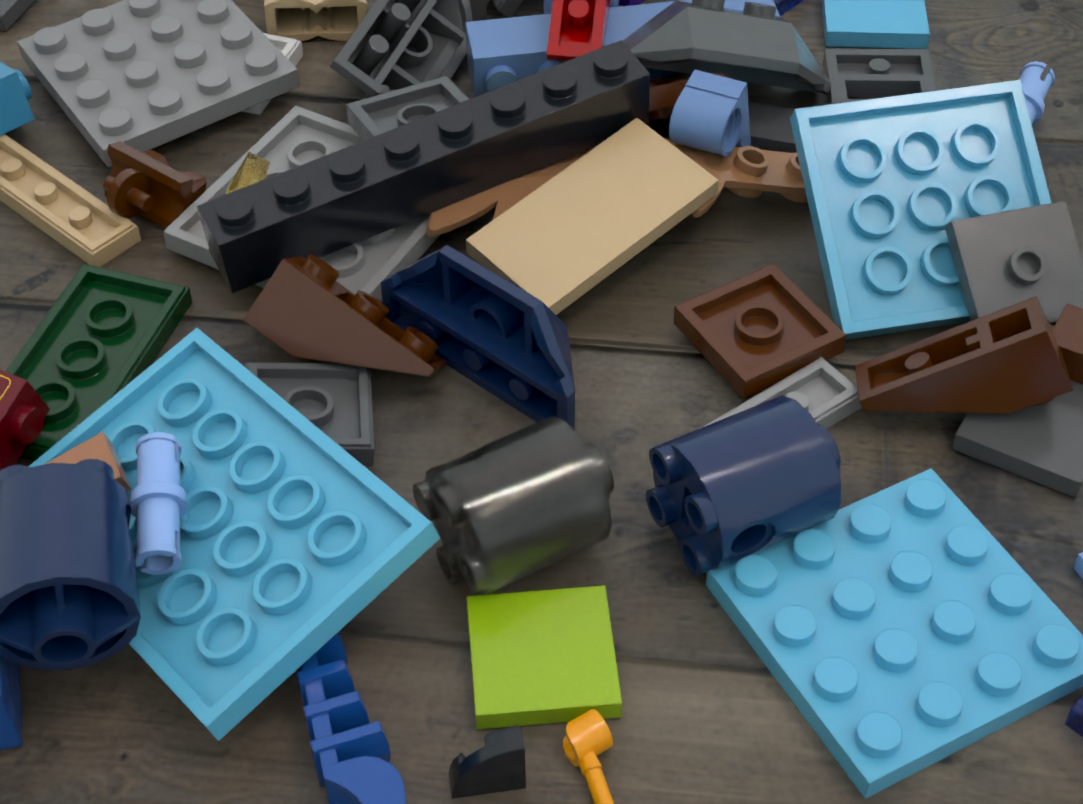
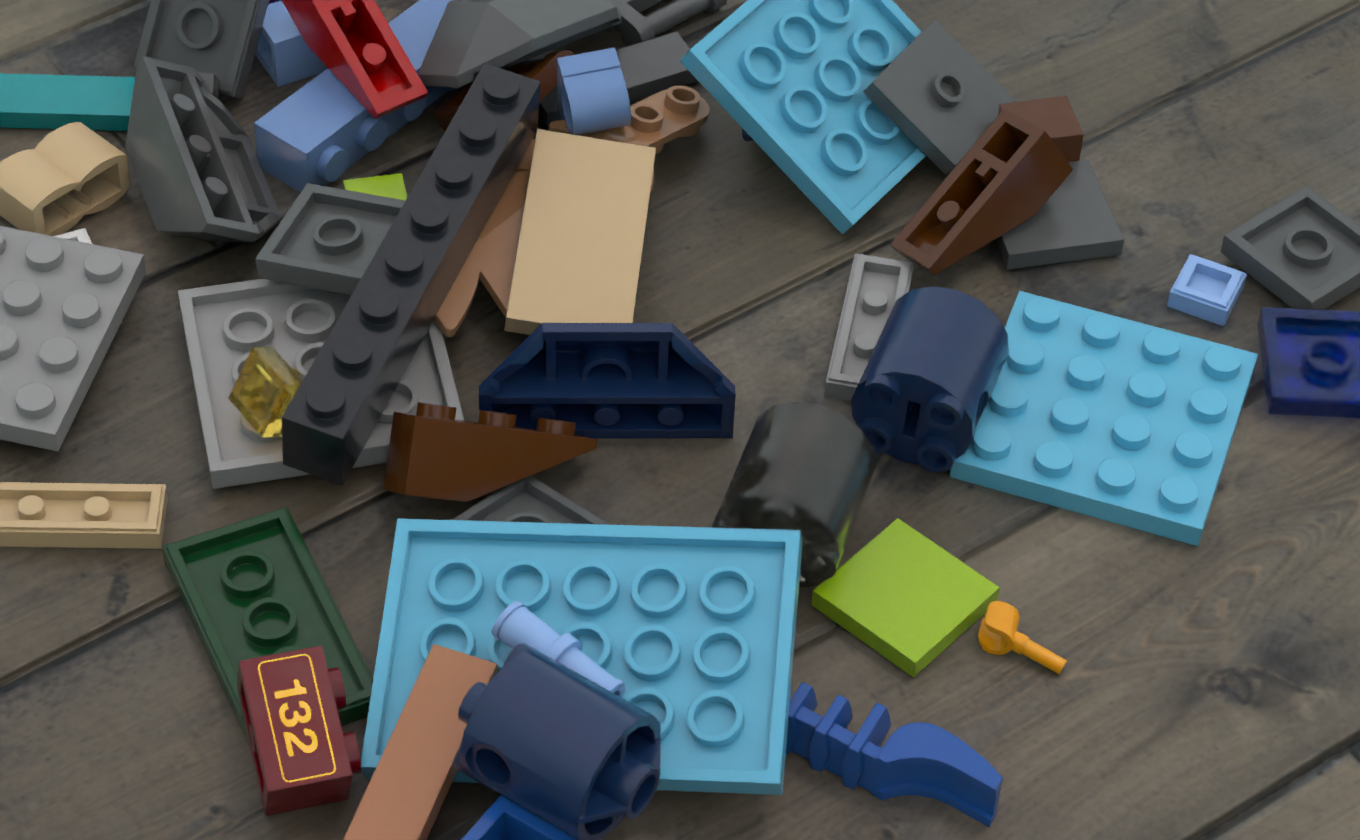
camera: 45 degrees left, 0 degrees up
(148, 186) = (136, 443): reddish brown hips -> none
(492, 768) = (969, 687): black tile -> none
(758, 329) = (787, 259): reddish brown plate -> none

